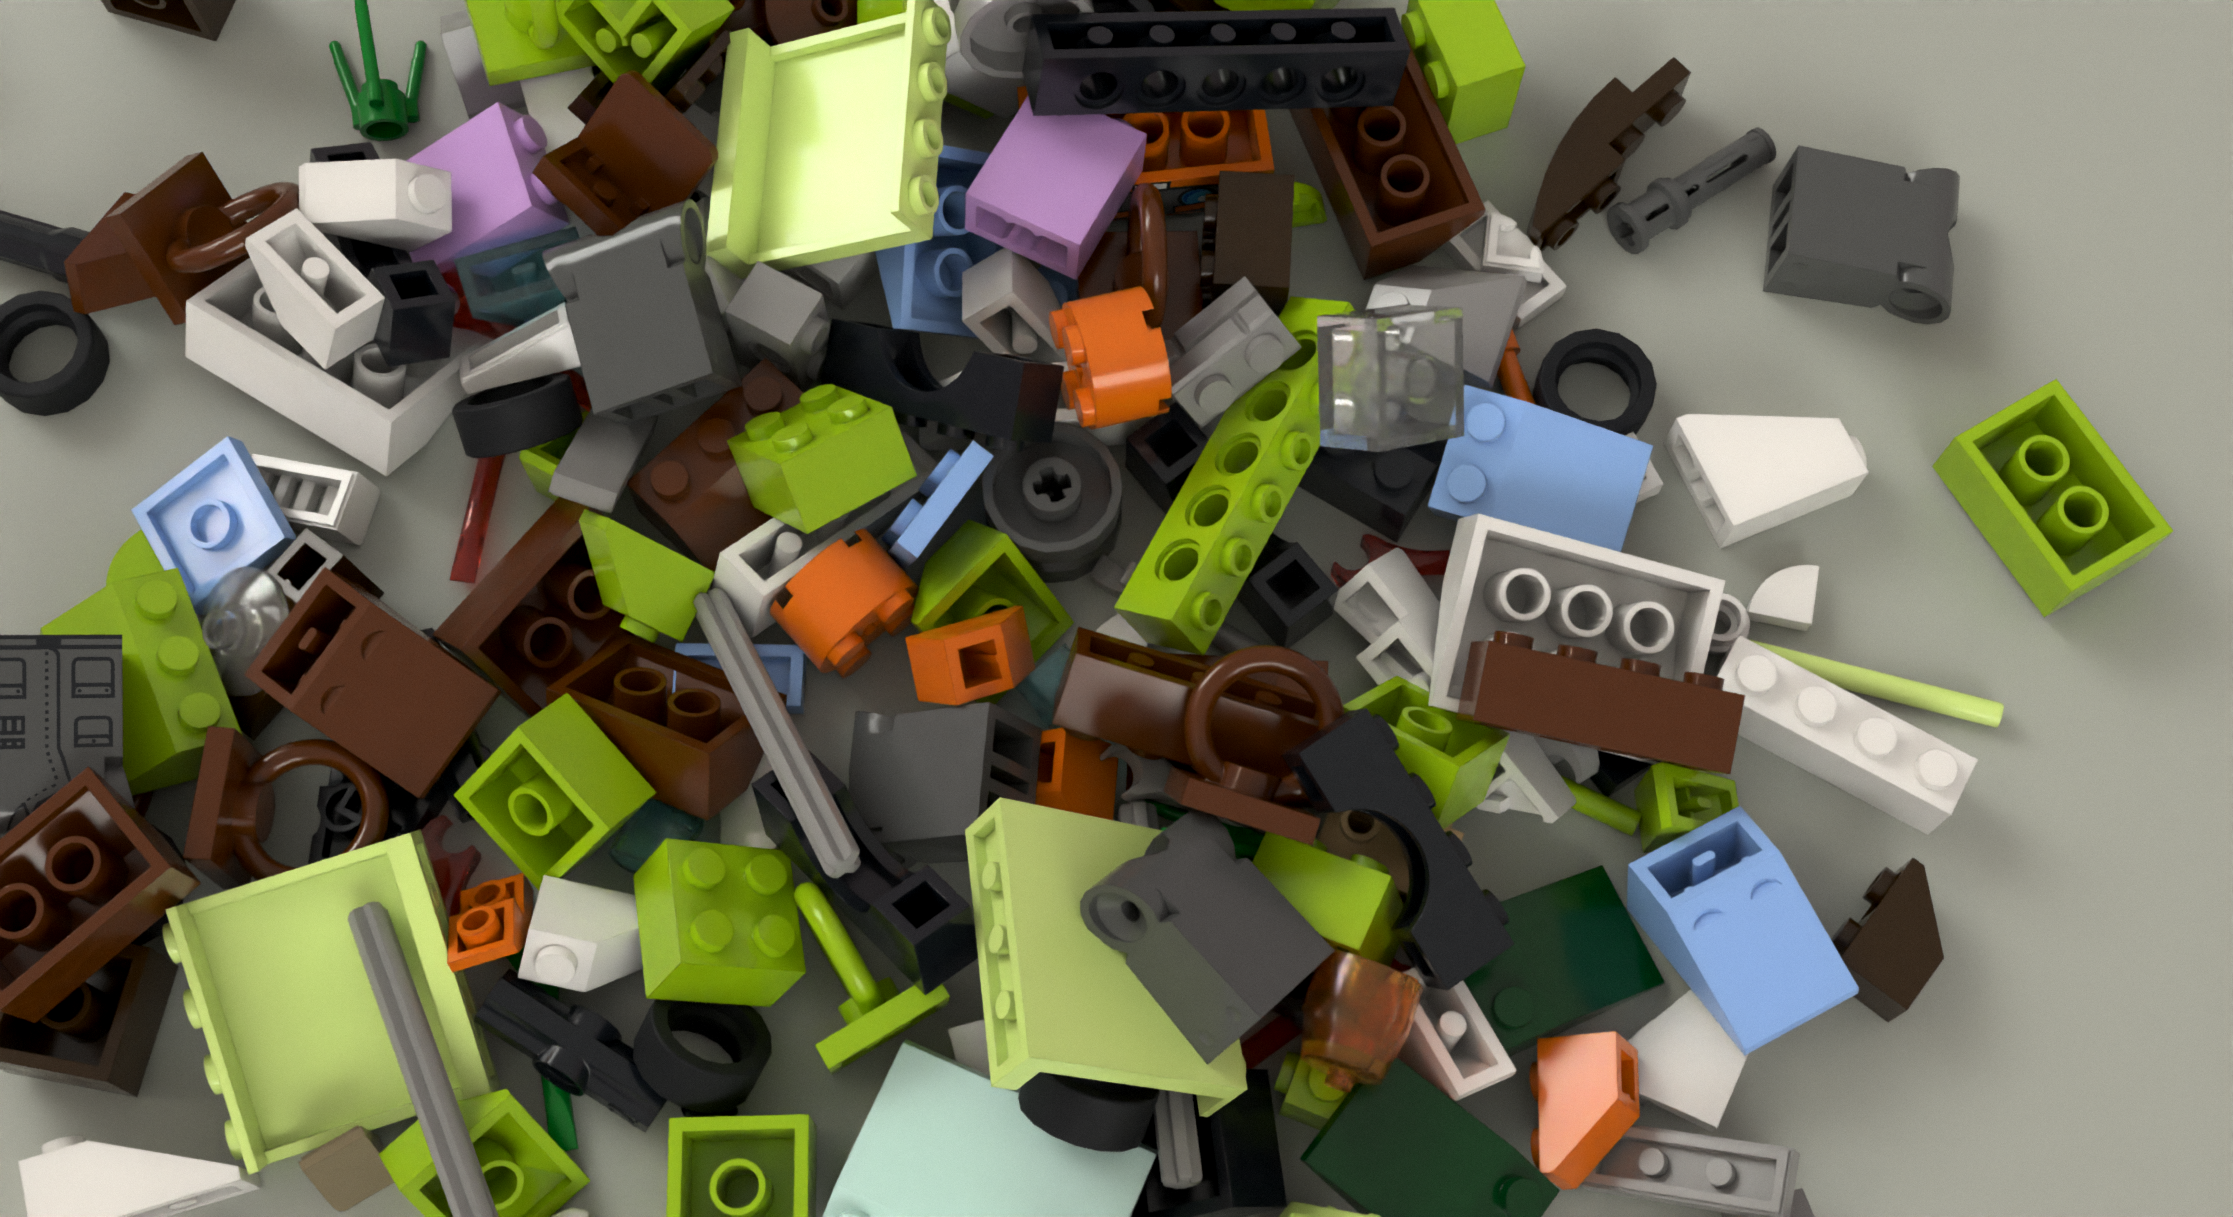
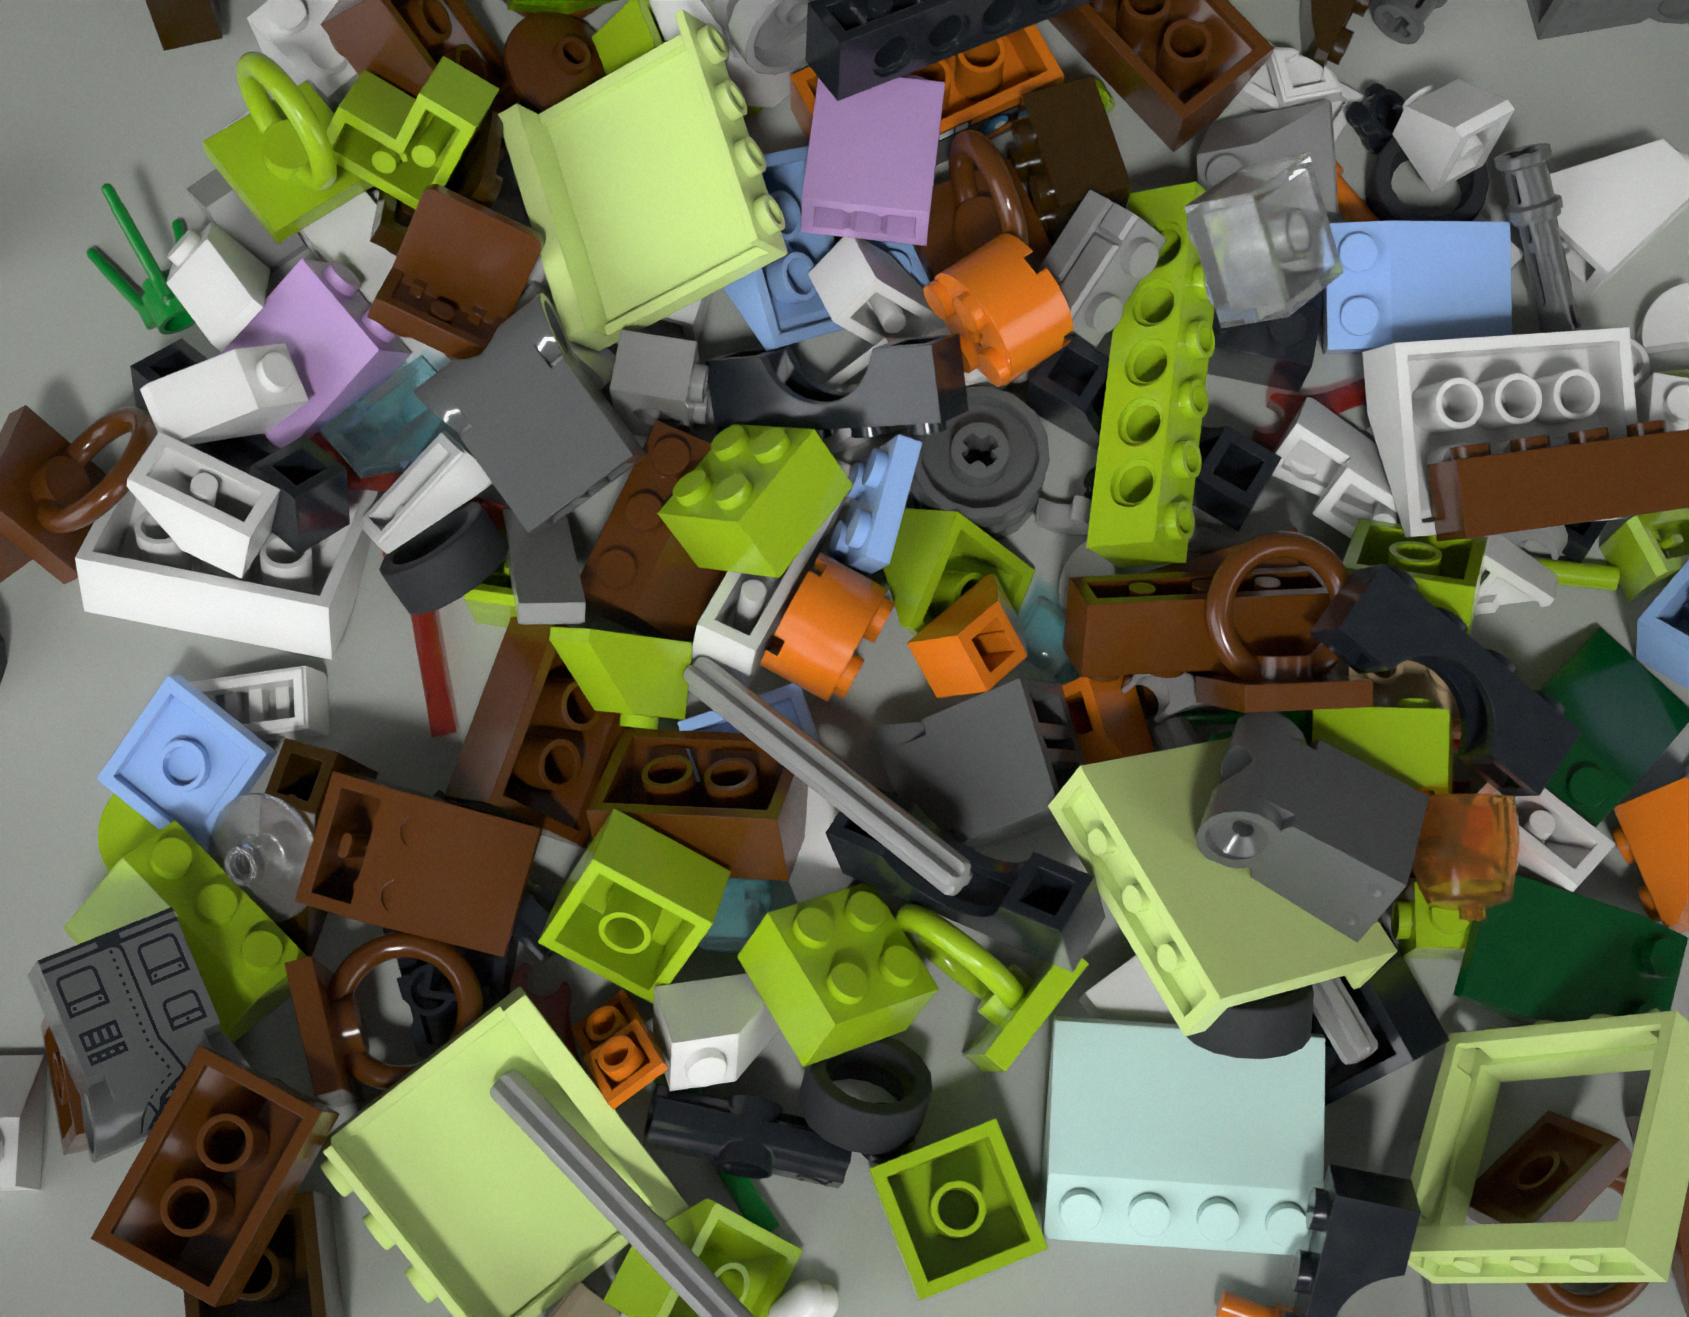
camera: 20 degrees left, 5 degrees up
(422, 101) = (217, 283): none -> white slope
(1583, 300) = (1376, 116): none -> black plate
(1623, 340) = (1450, 130): none -> white slope
(1679, 446) = (1535, 214): none -> dark grey pin

